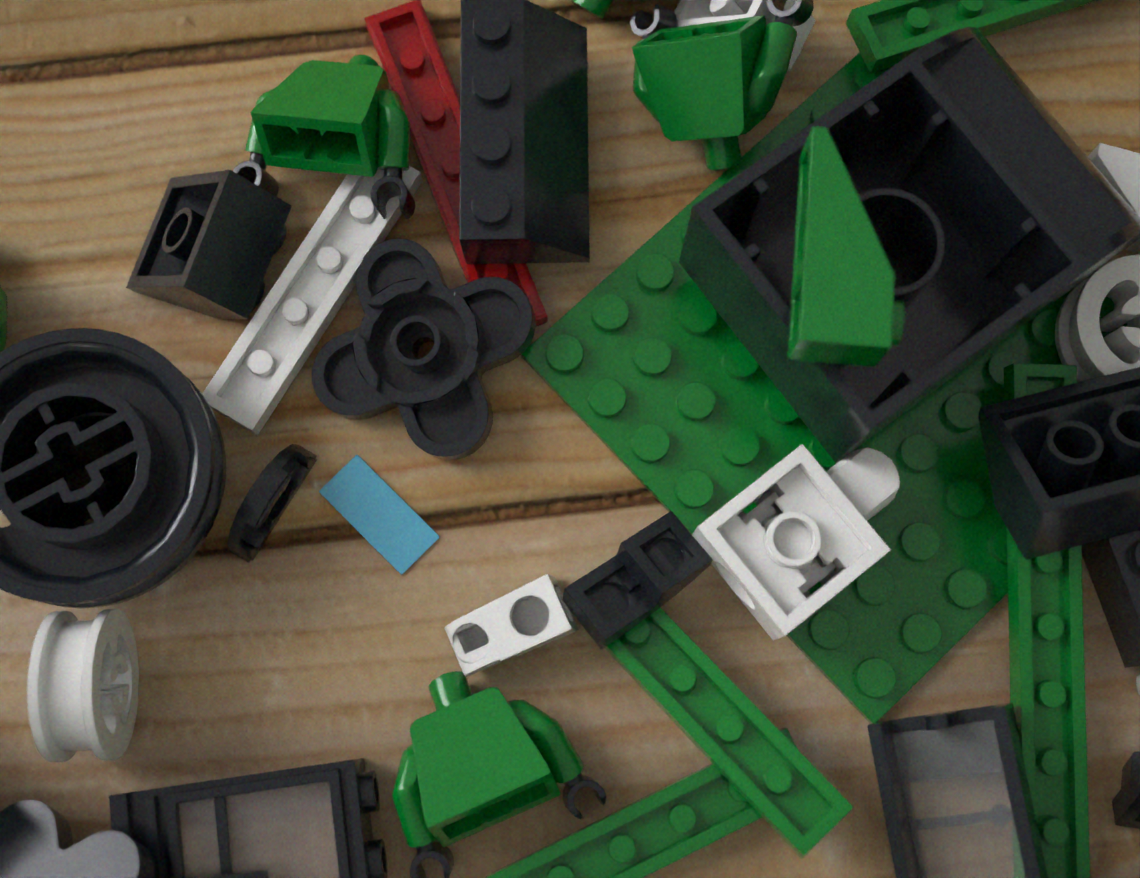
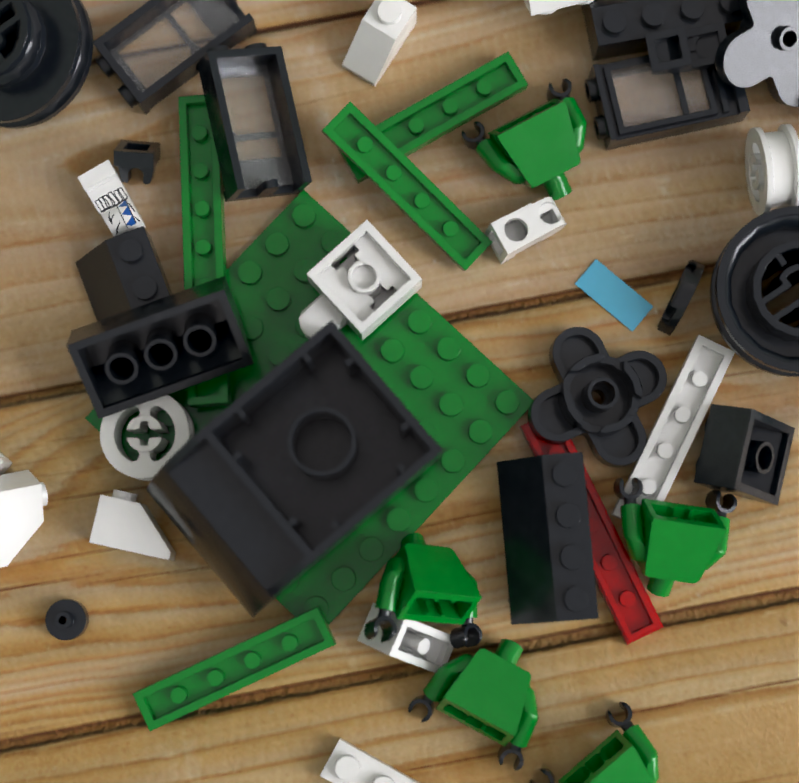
camera: 175 degrees right, 5 degrees up
(637, 580) = (453, 256): black slope -> none
(840, 271) = (354, 395): green slope -> none

